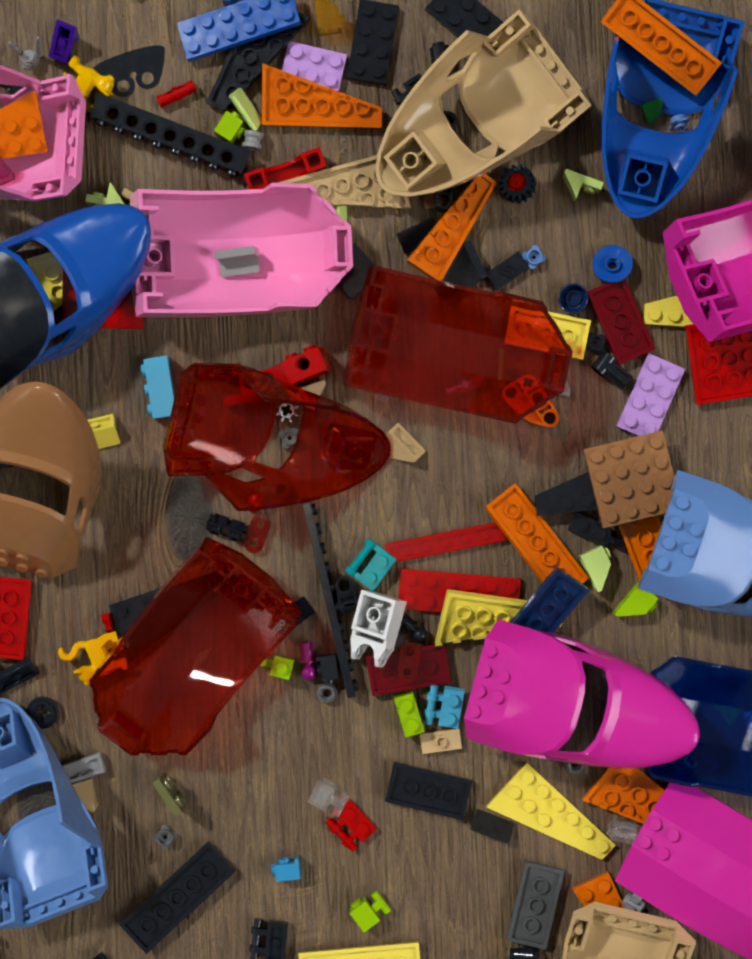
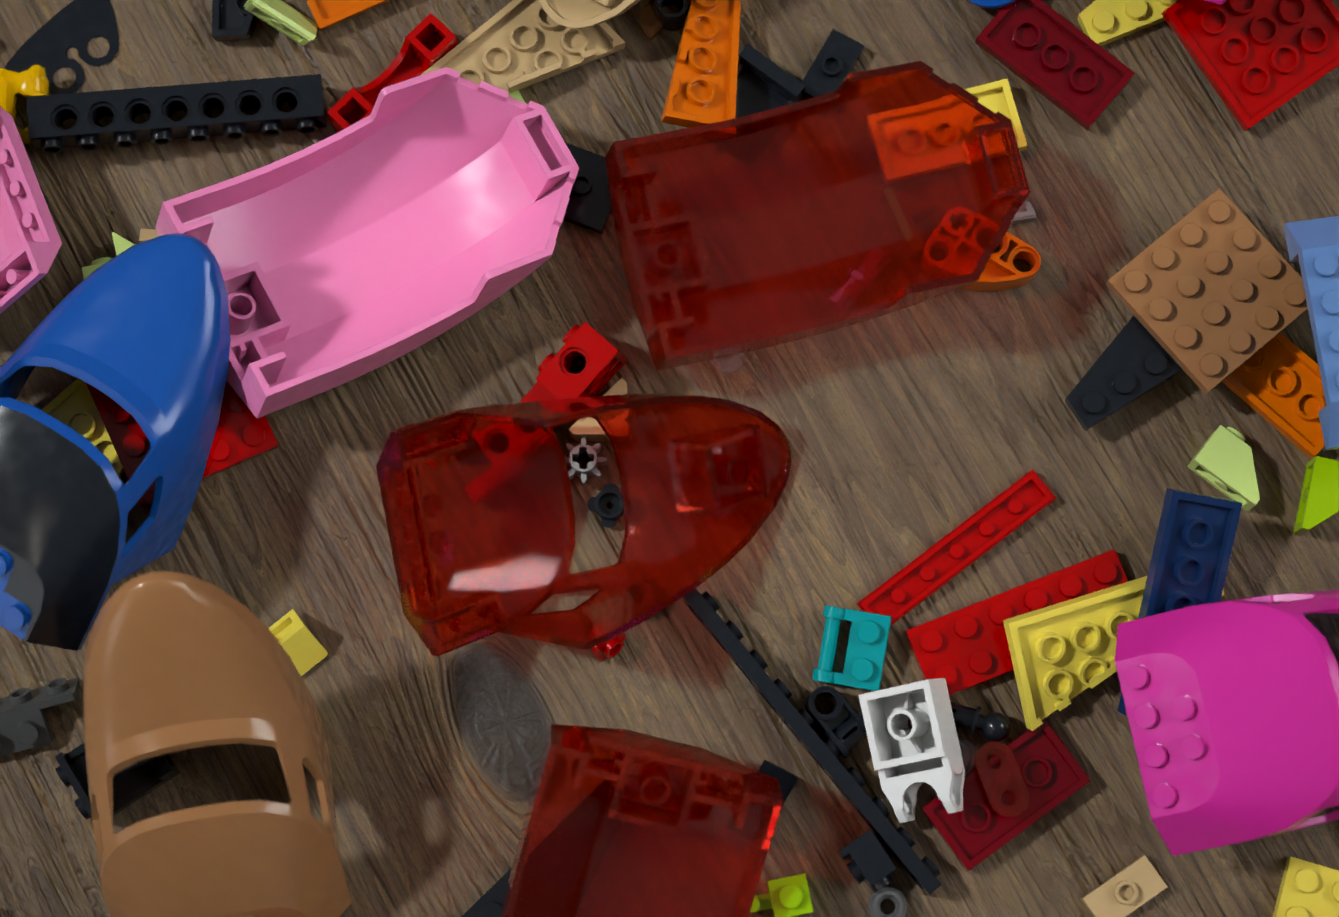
camera: 20 degrees left, 10 degrees down
(159, 386) = (350, 526): medium azure brick -> none
(176, 94) = (157, 47): red pin -> none
(218, 526) = (594, 707): black hinge -> none
(230, 127) = (269, 54): lime brick -> none
(238, 261) = (384, 257): light grey panel -> none
(252, 140) = (316, 58): light grey wheel -> none
(256, 533) = (633, 691): clear red plate -> none
(308, 671) = (838, 883): magenta pin -> none
(403, 445) = (806, 425): tan slope -> none
(409, 714) = (1047, 871): lime brick -> none
(413, 236) = (650, 87): black slope -> none
(450, 708) = (1111, 825): medium azure plate -> none
(532, 535) = (1092, 466): orange plate -> none
(536, 252) = (859, 17): medium blue plate -> none
(573, 298) = (961, 58): dark blue hair -> none
(593, 531) = (1192, 412): black hinge -> none
(600, 339) = (1037, 103): black plate -> none
(607, 367) = (1073, 139): black piece -> none
(650, 396) = (1165, 152): lavender plate -> none

